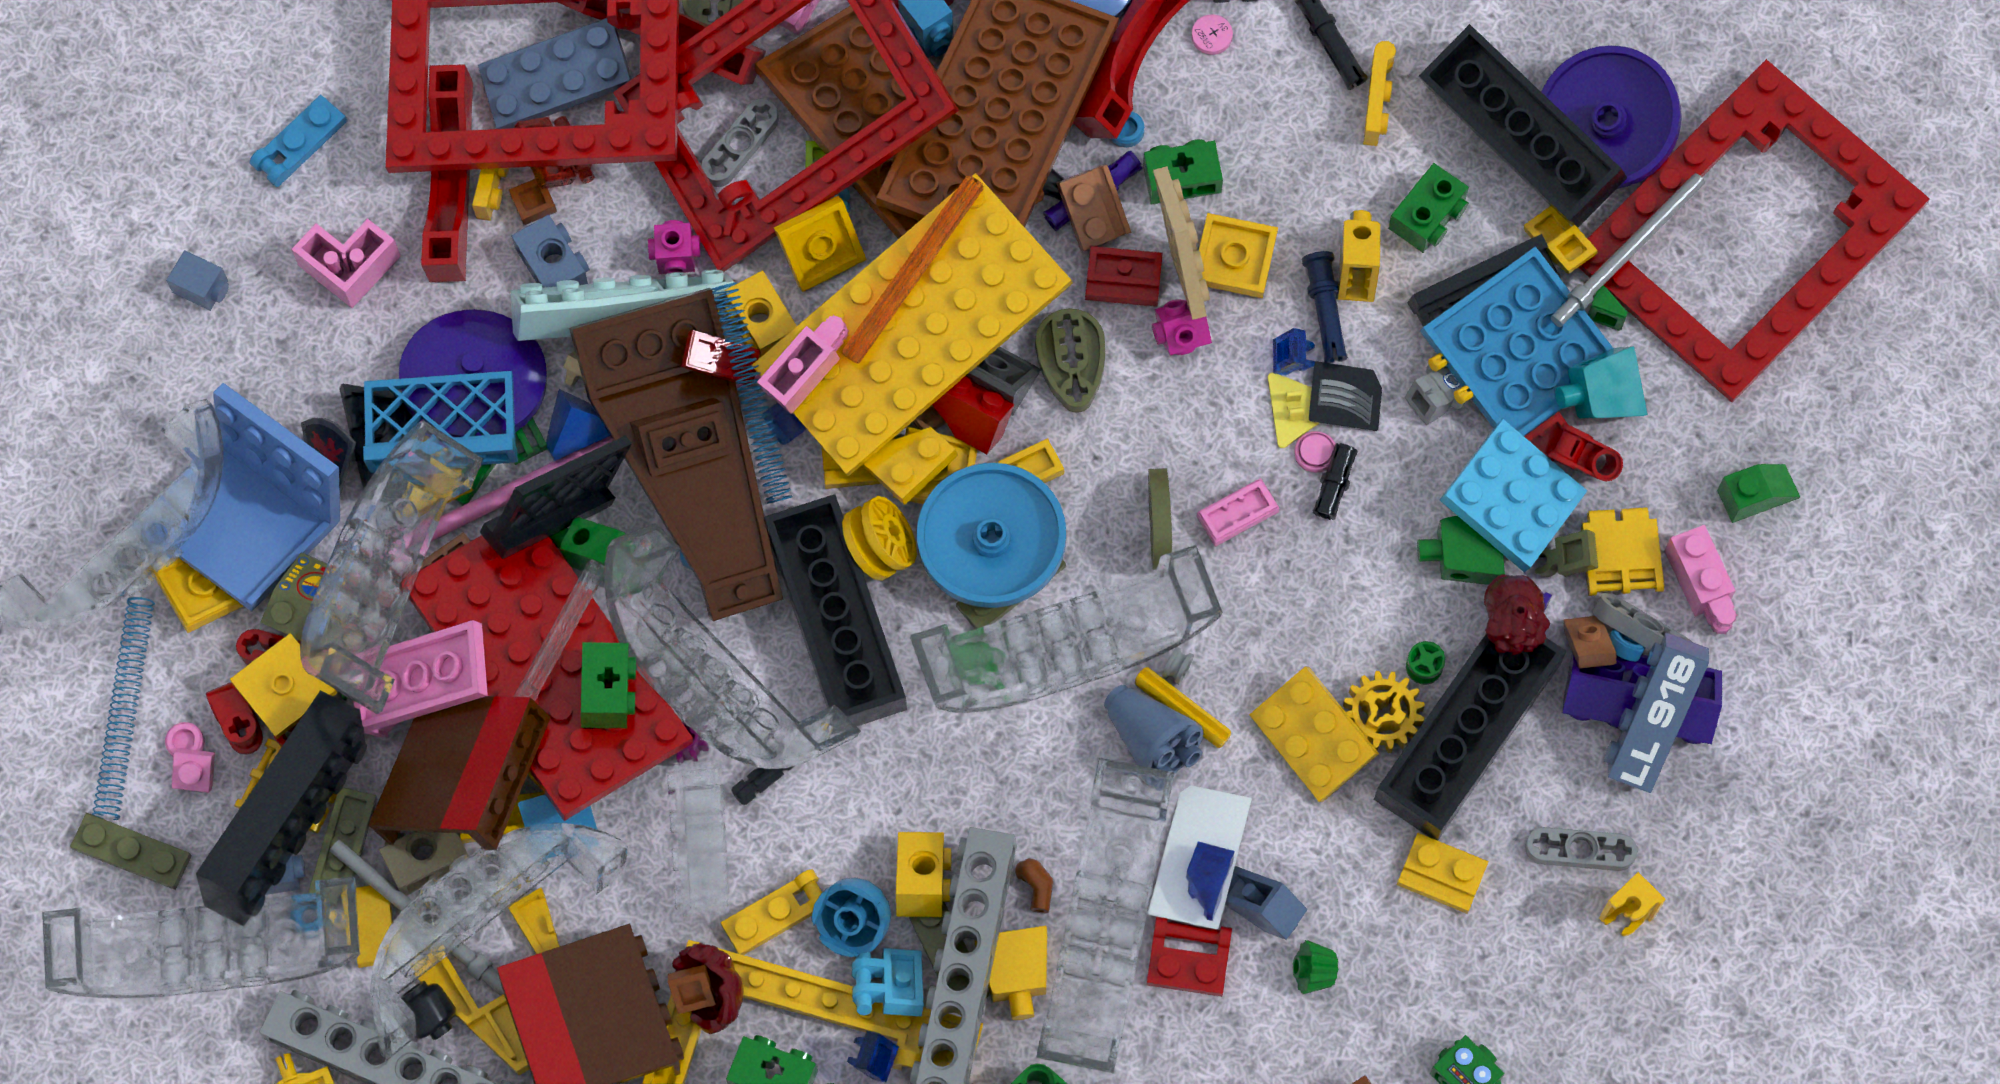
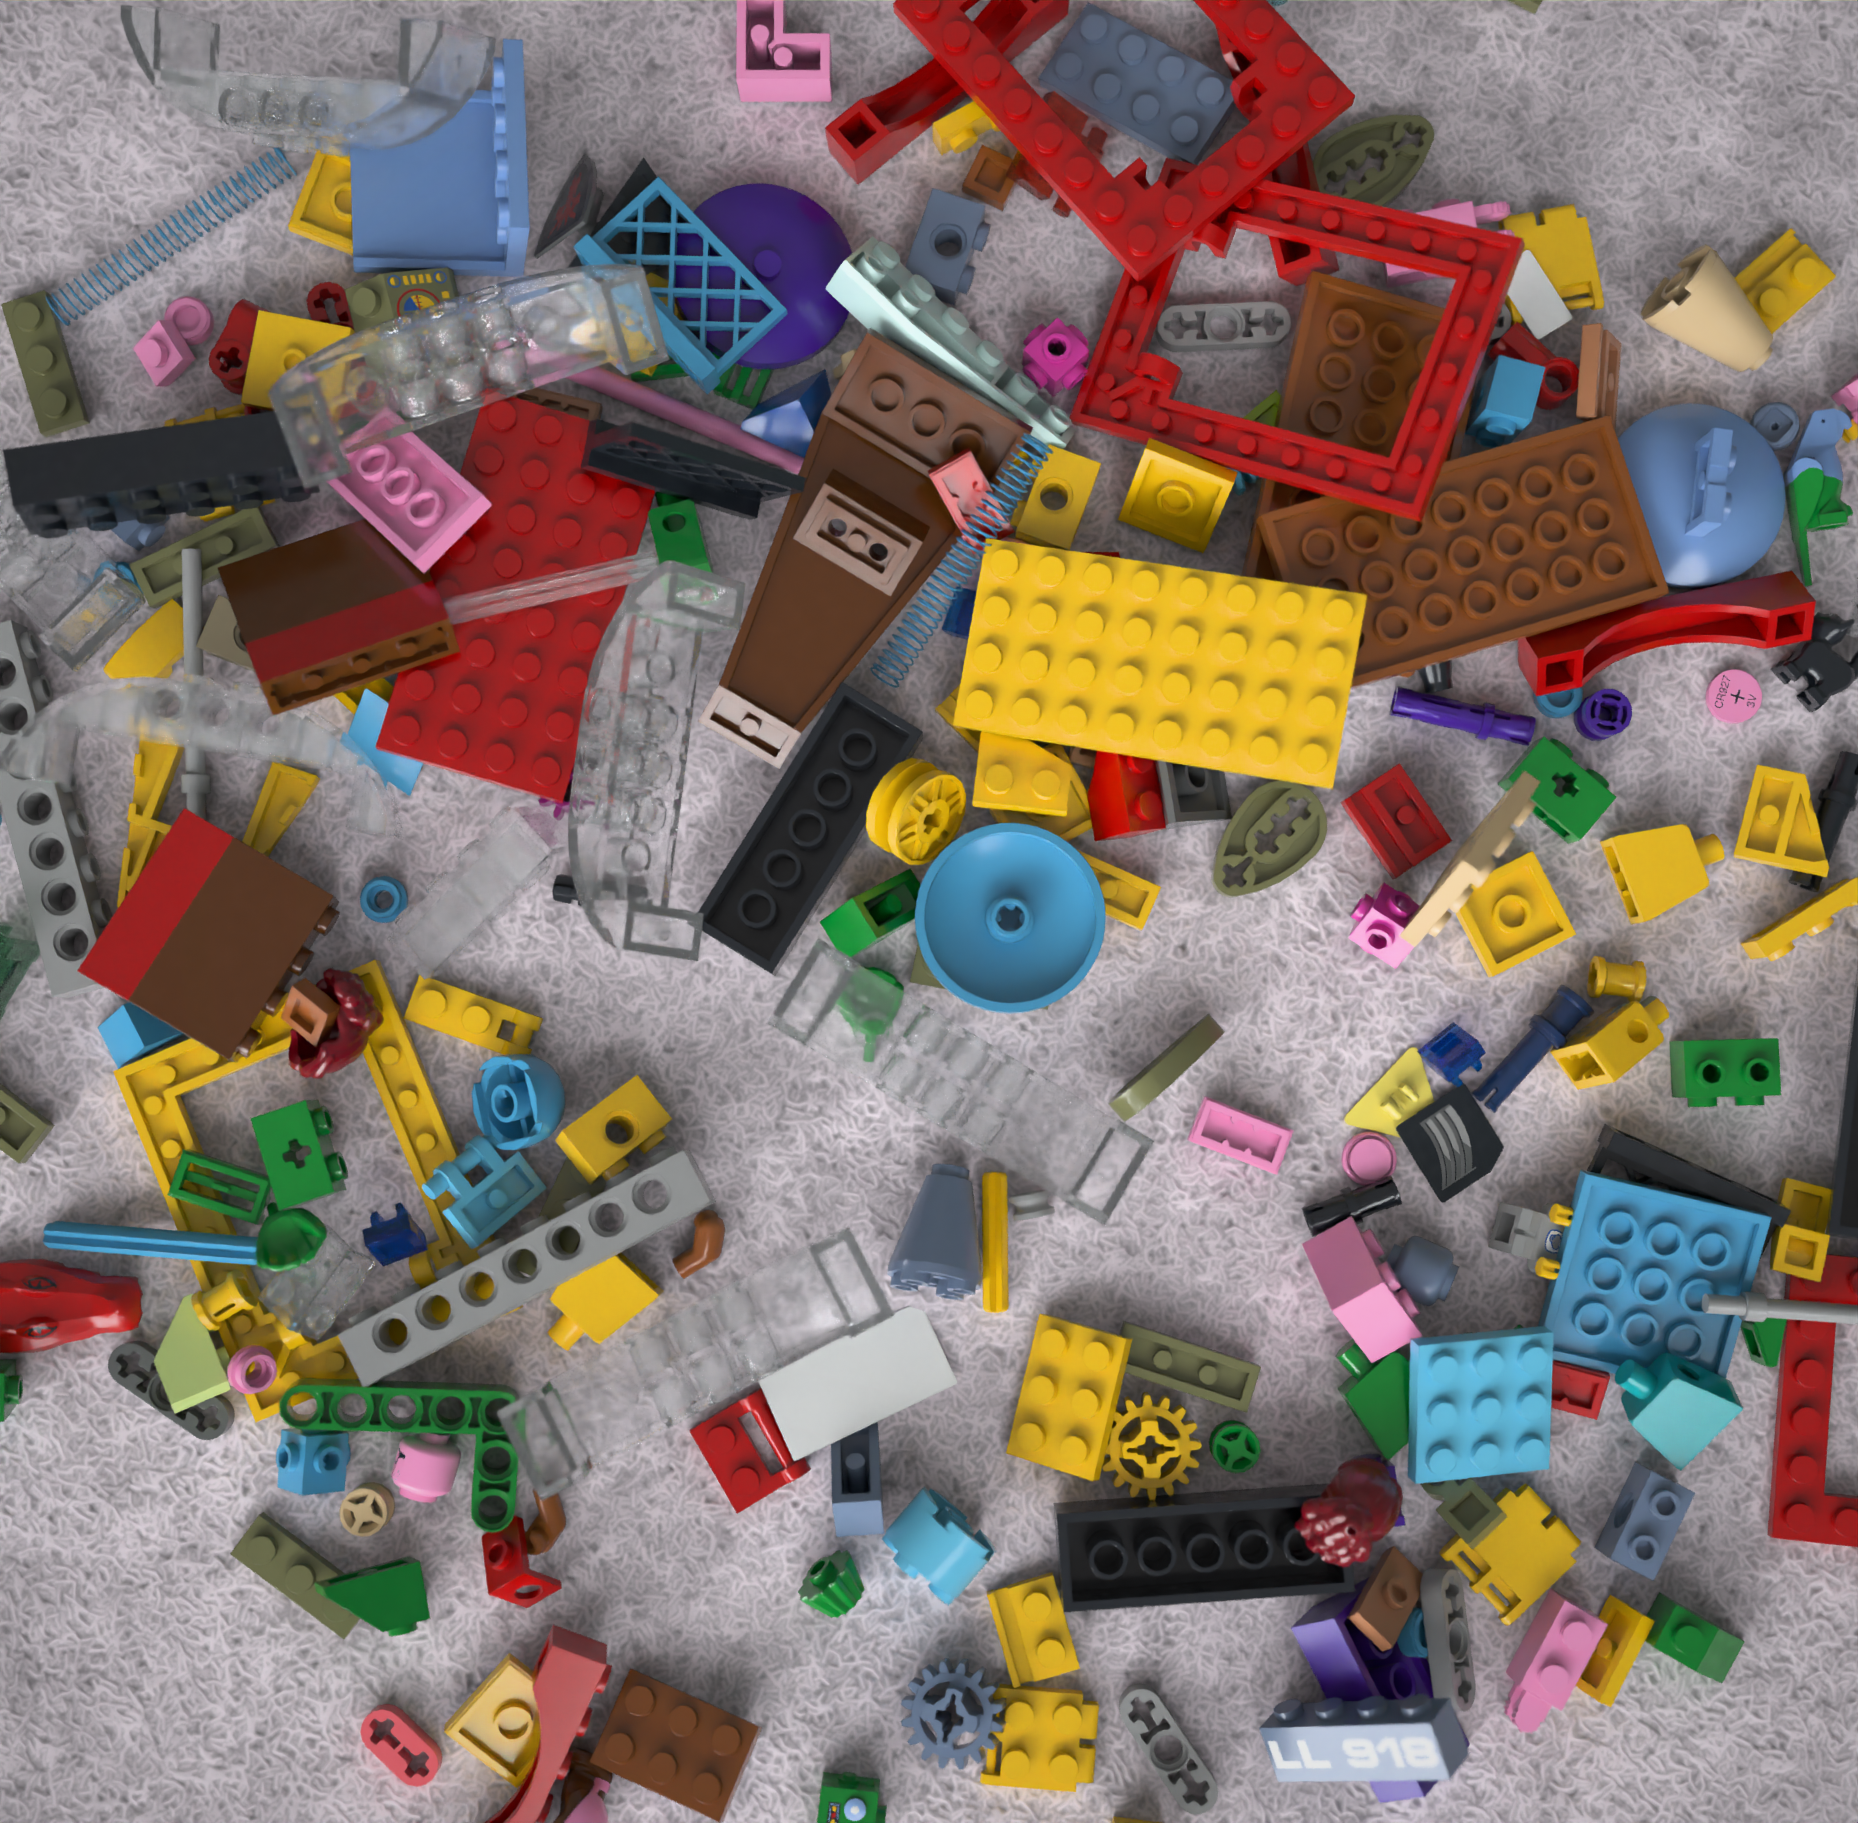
camera: 50 degrees right, 15 degrees up
(431, 1009) = (103, 773): black head -> none
(601, 705) = (542, 652): green brick -> none
(651, 897) = (369, 897): none -> dark azure plate
(804, 363) = (1018, 593): bright pink hinge -> none
(912, 269) = (1211, 617): clear orange axle -> none
(919, 612) = (873, 914): none -> green slope
(1093, 207) = (1443, 733): nougat plate -> none
(1158, 120) = (1593, 720): none -> dark purple wheel
(1208, 875) = (838, 1411): clear blue slope -> none
(1277, 151) = (1659, 868): none -> yellow torso
(1309, 65) = (1781, 824): none -> yellow wing
(1323, 227) = (1616, 979): none -> yellow bush
(1340, 877) = (938, 1544): none -> medium azure brick
(1357, 650) = (1190, 1367): none -> olive plate
(1389, 507) = (1363, 1289): none -> bright pink brick
(1407, 470) = (1423, 1269): none -> sand blue head
(1467, 943) = (934, 1707): none -> sand blue gear
(1513, 921) = (1043, 1739): none -> yellow plate
(1581, 452) = (1585, 1443): red piece -> none
(1662, 460) = (1644, 1521): none -> sand blue brick
(1728, 539) = (1615, 1650): none -> yellow plate

